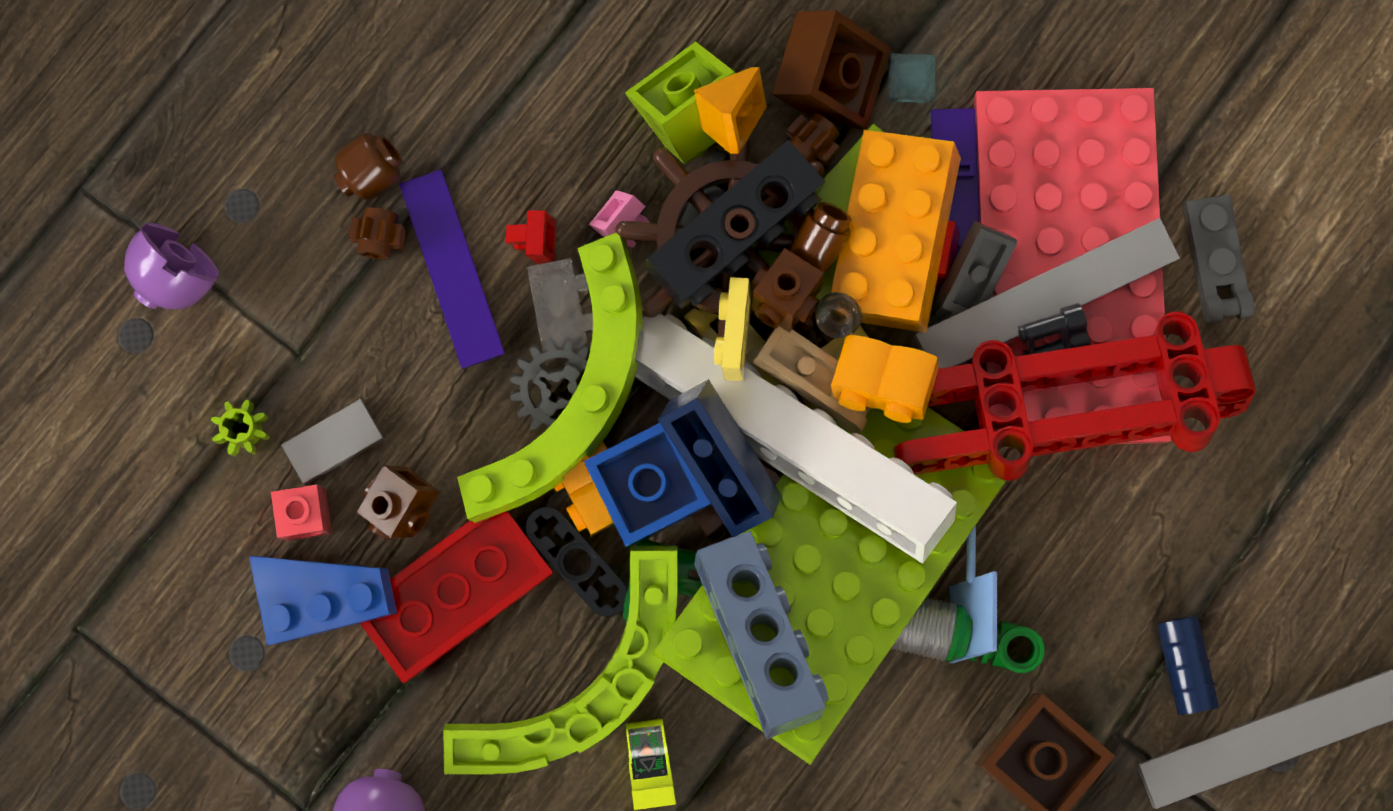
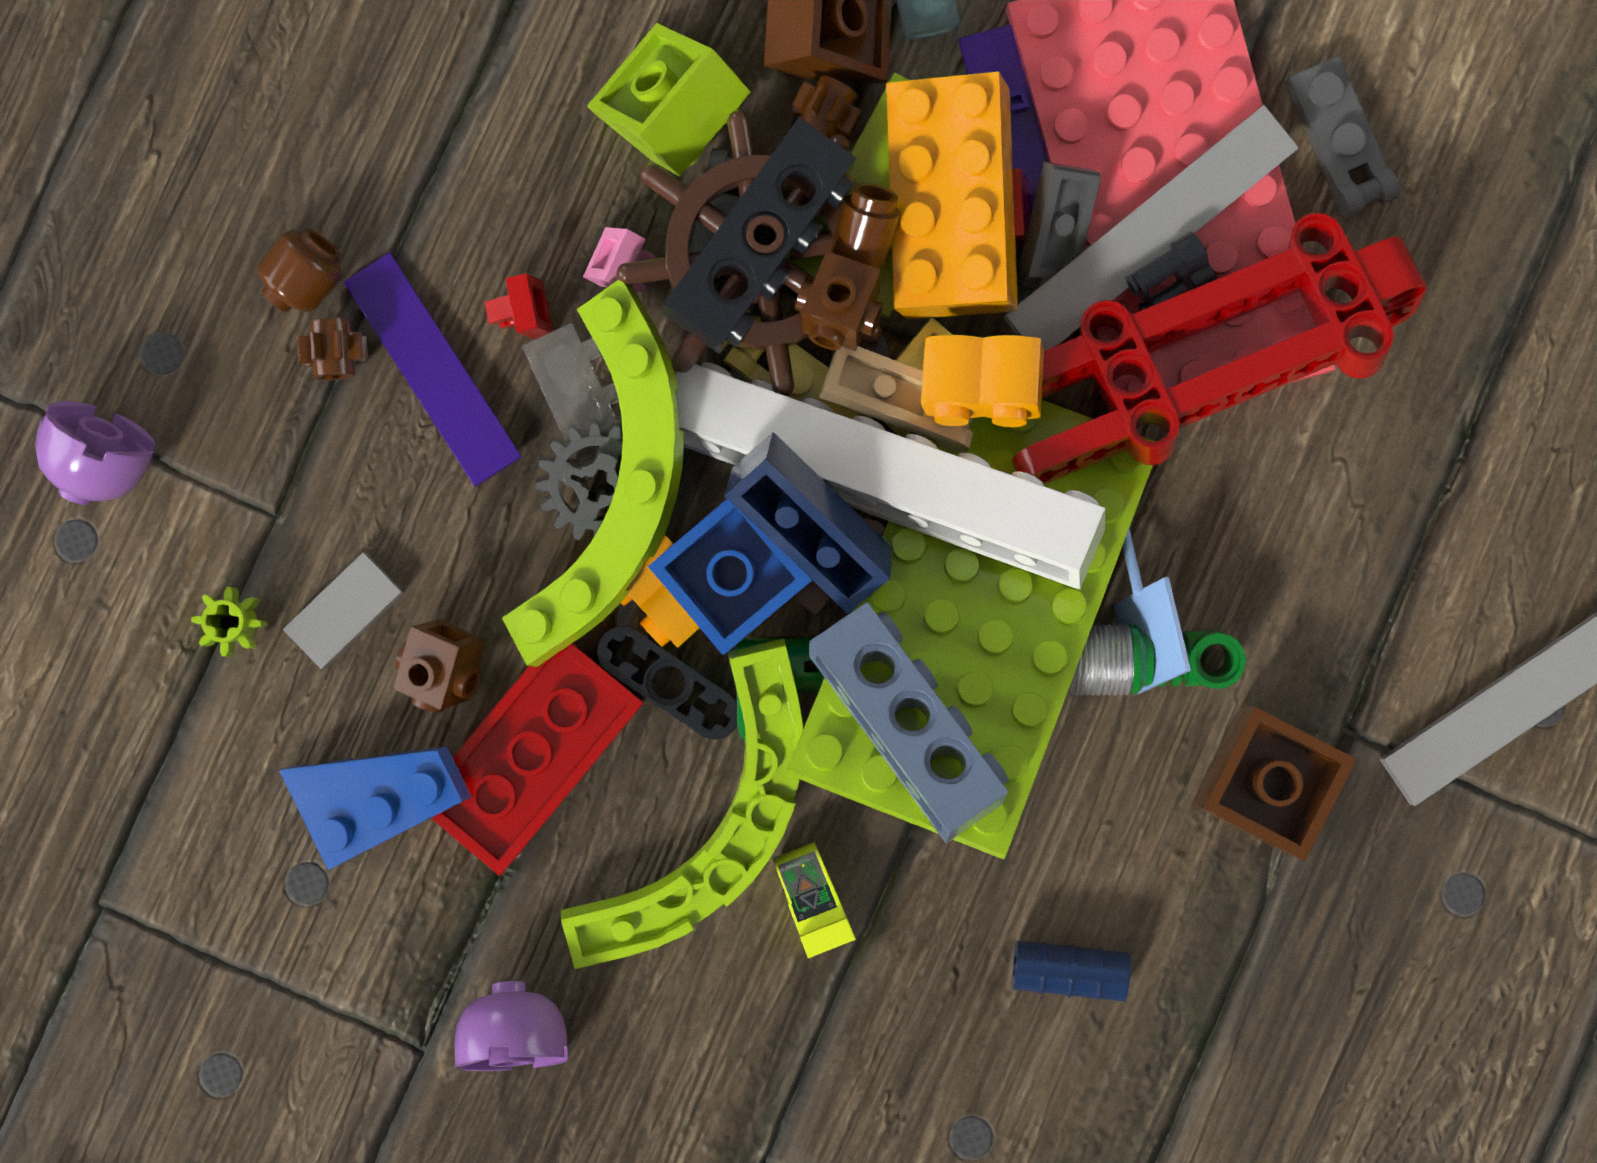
camera: 15 degrees left, 5 degrees up
(301, 513) = (327, 705): coral brick -> none
(732, 108) = (720, 94): light orange slope -> none
(735, 309) = (784, 338): light yellow plate -> none
(833, 324) = (907, 328): clear smoke plate -> none
(1188, 665) = (1414, 629): dark blue axle -> none

